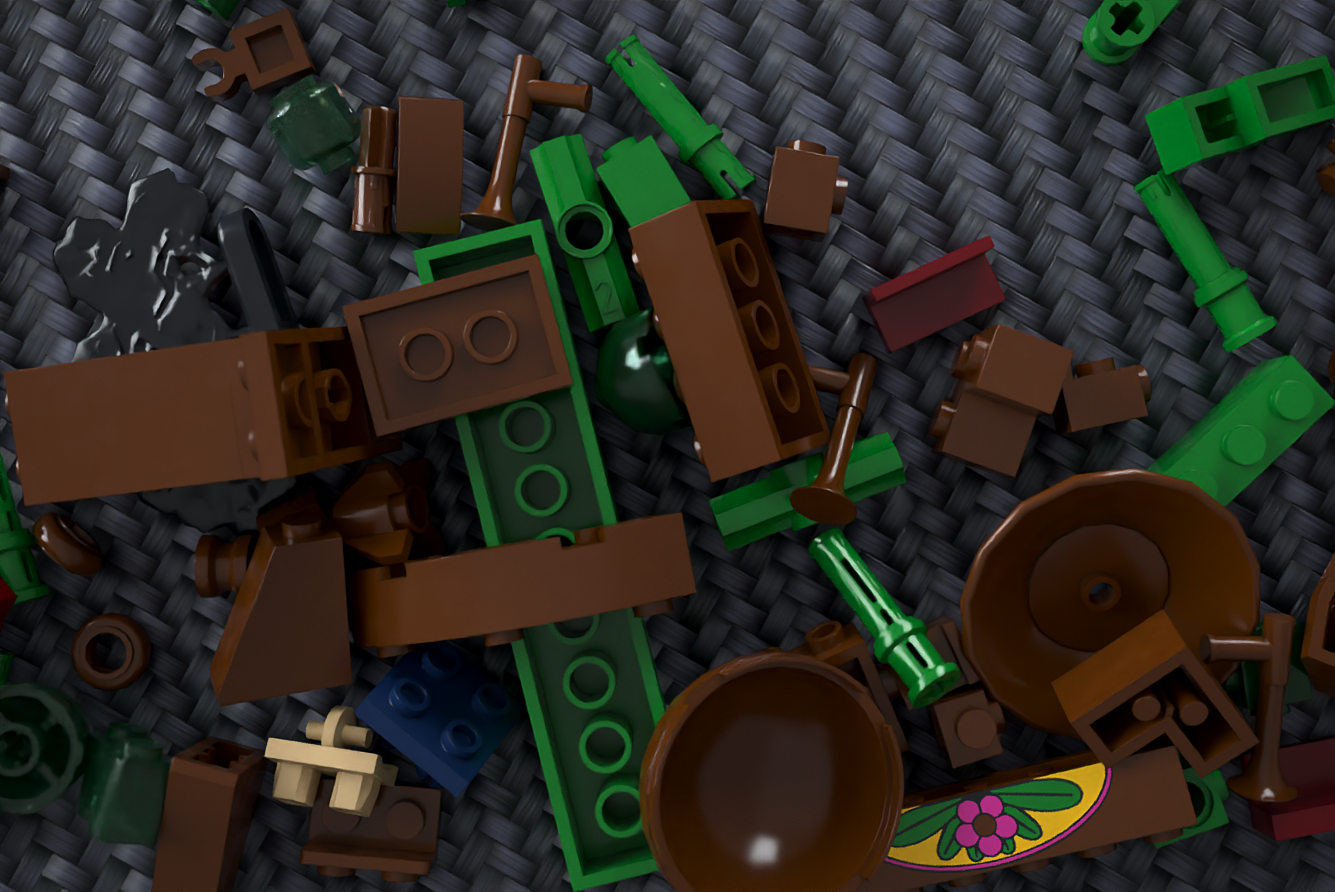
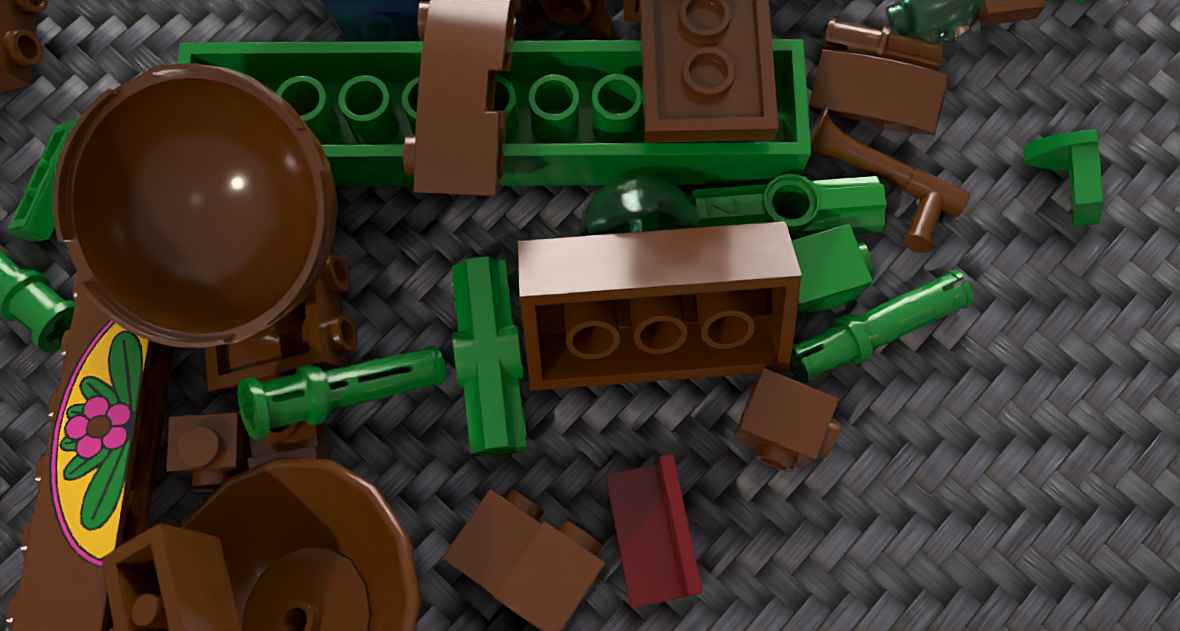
camera: 105 degrees right, 15 degrees down
(825, 497) = (478, 355): reddish brown piece -> none

